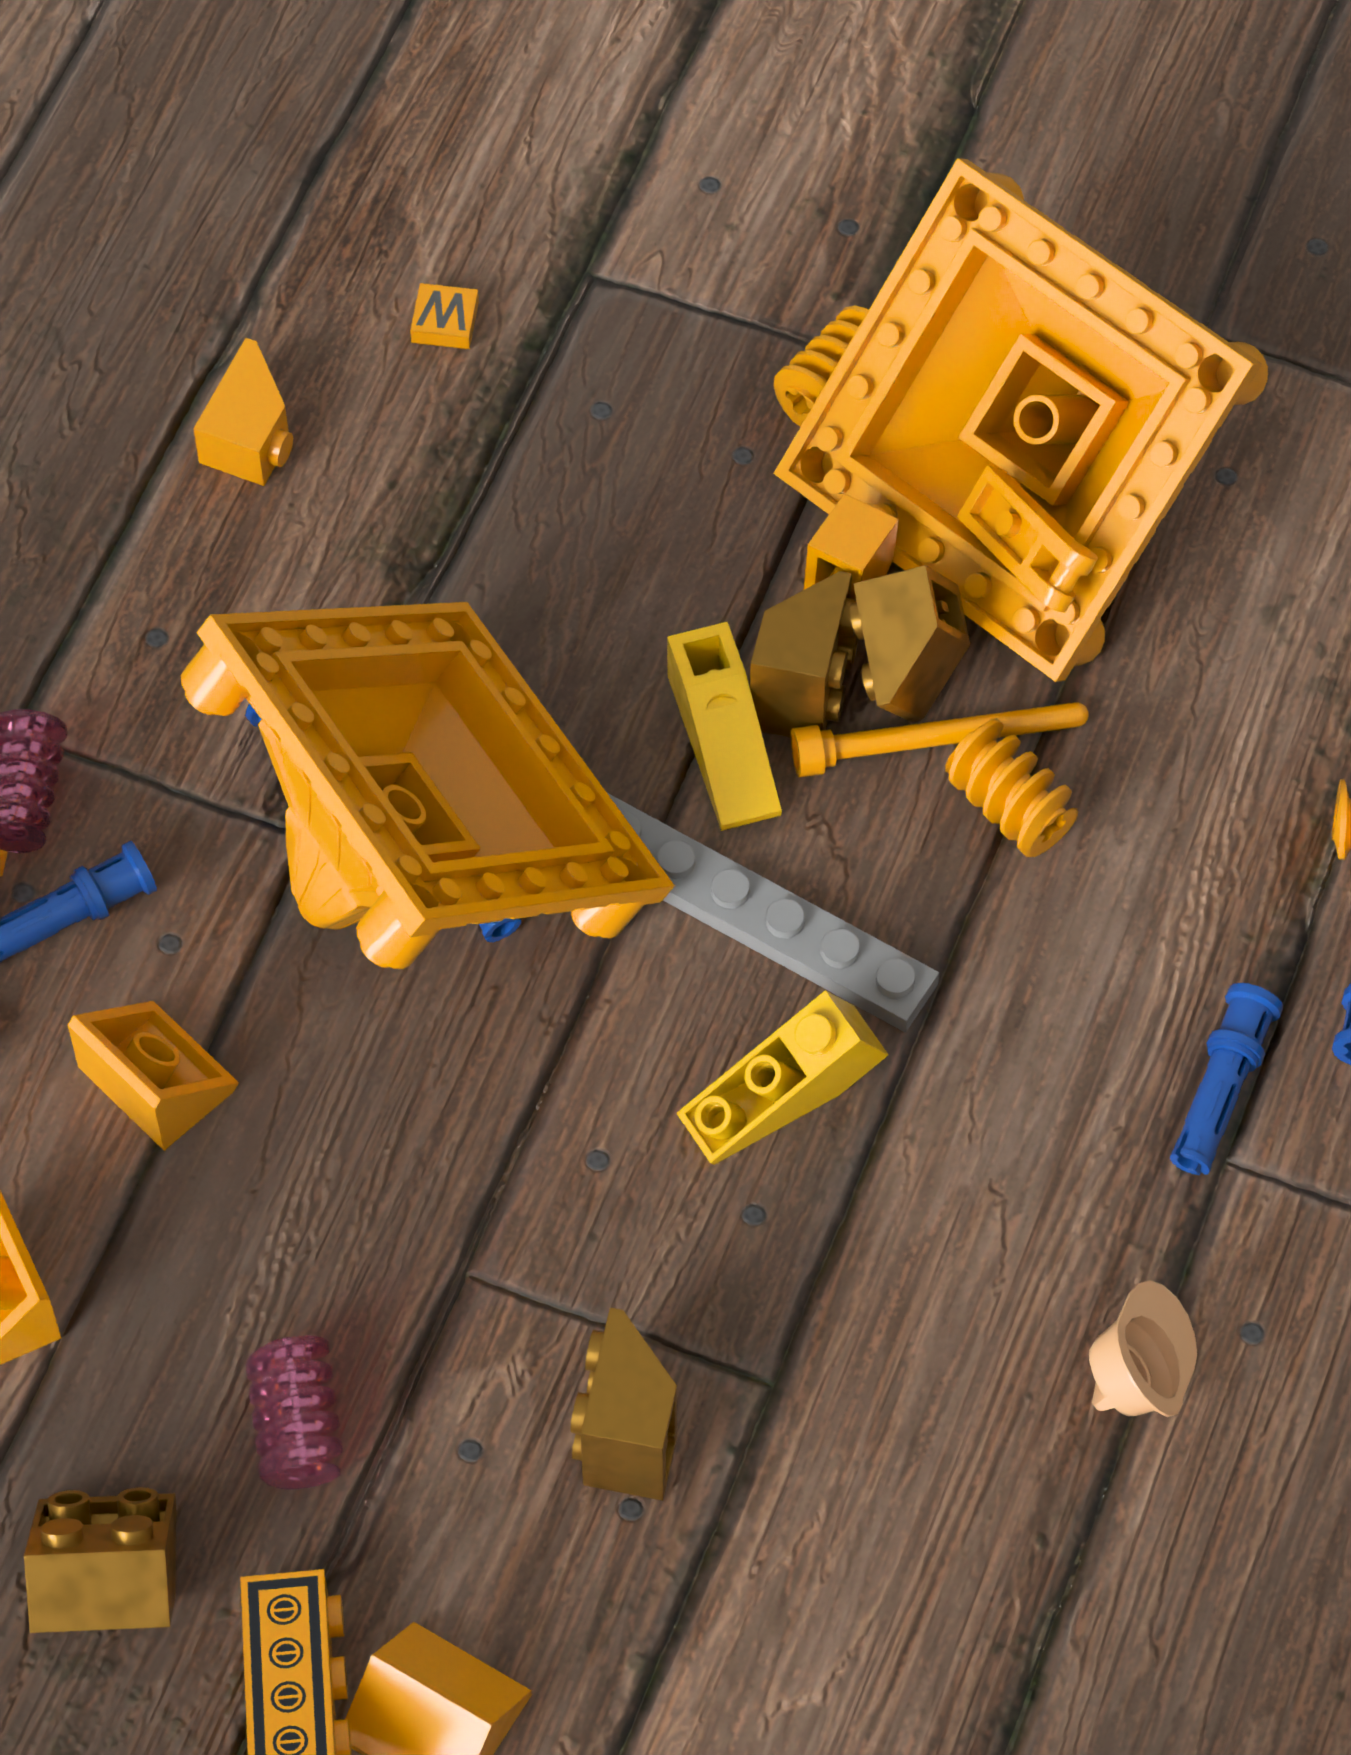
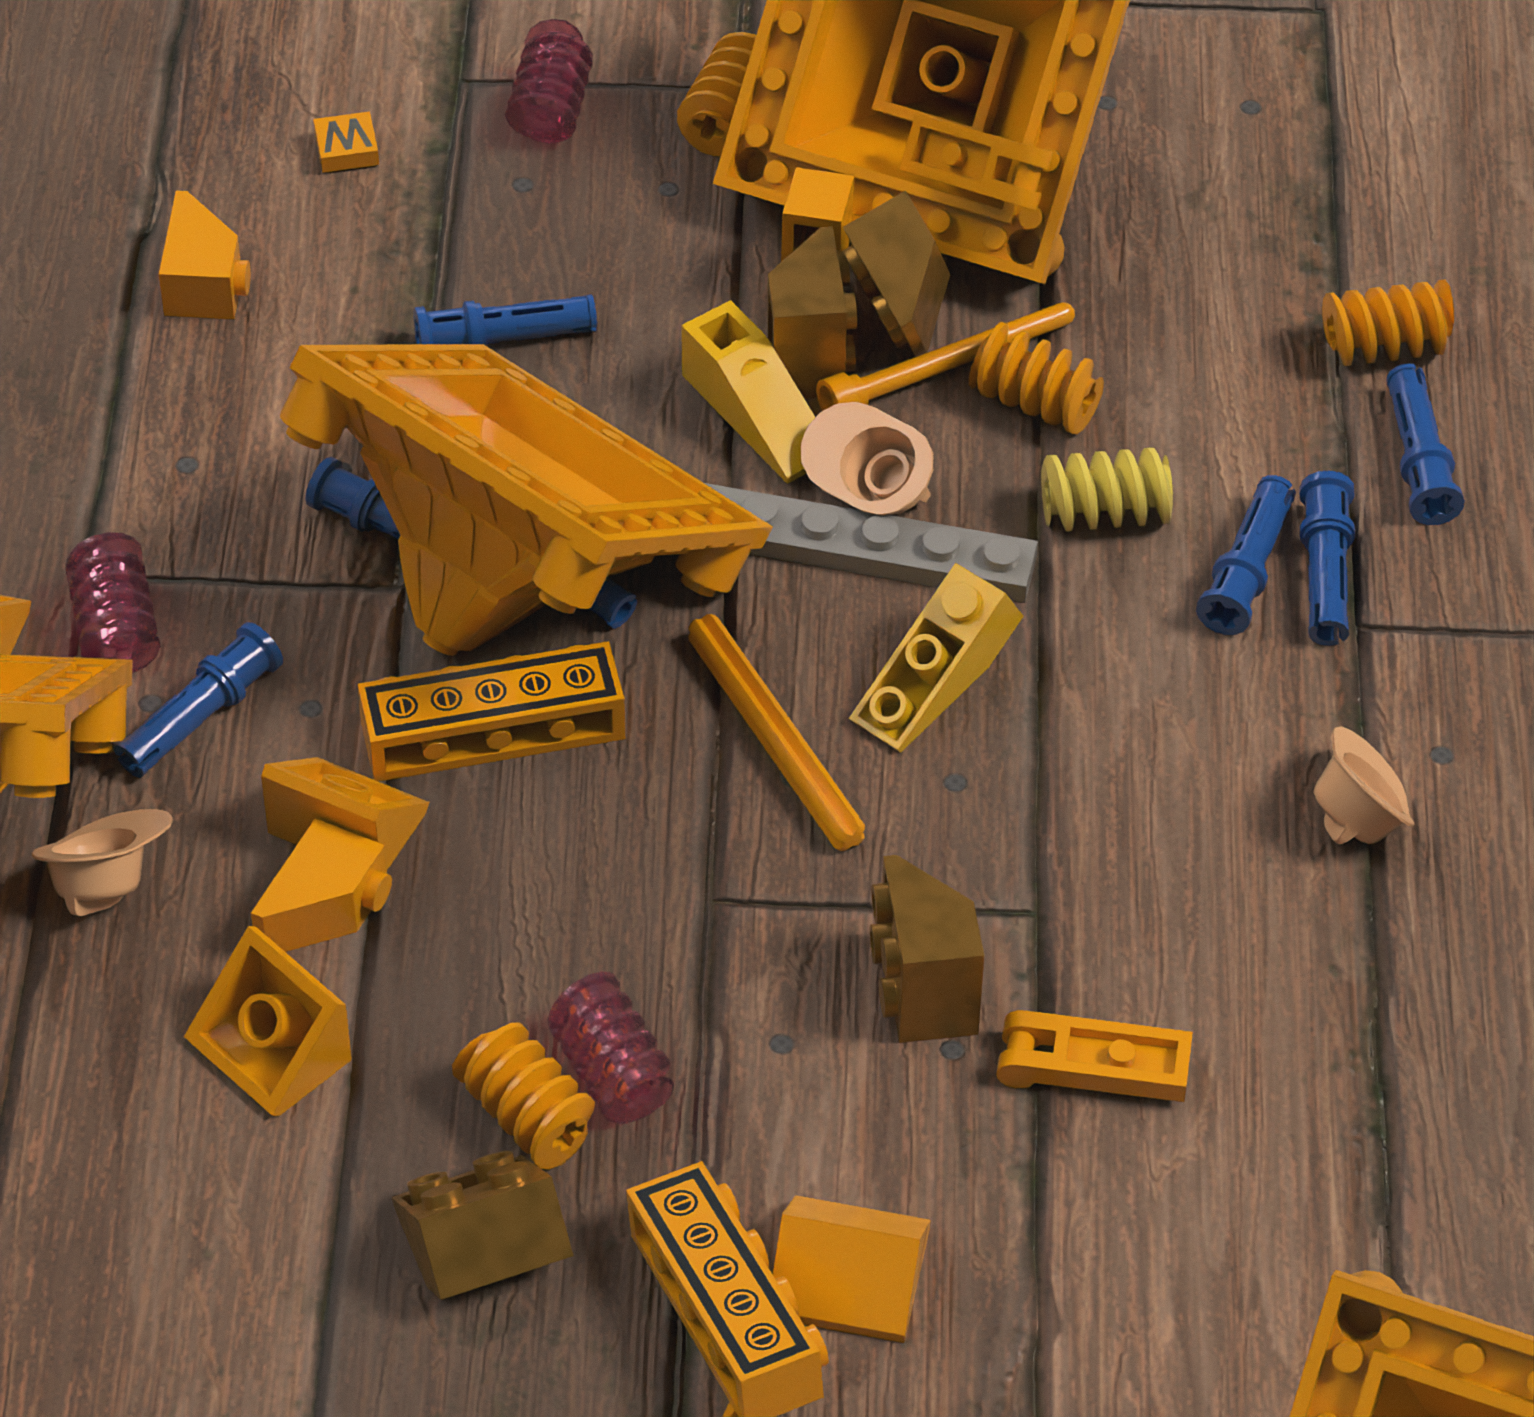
camera: 20 degrees left, 10 degrees down
(93, 1153) = (323, 888): none -> light orange slope
(195, 1437) = (526, 1093): none -> light orange piece
(328, 1005) = (491, 711): none -> light orange brick
(484, 566) = (505, 323): none -> blue pin
(597, 1109) = (776, 733): none -> light orange axle
(662, 307) = (550, 82): none -> clear pink piece
(761, 1567) = (1094, 1055): none -> light orange plate
(799, 836) = (867, 459): none -> light nougat piece
(1029, 937) = (1107, 487): none -> light yellow piece
(1129, 1068) = (1242, 571): none -> blue pin

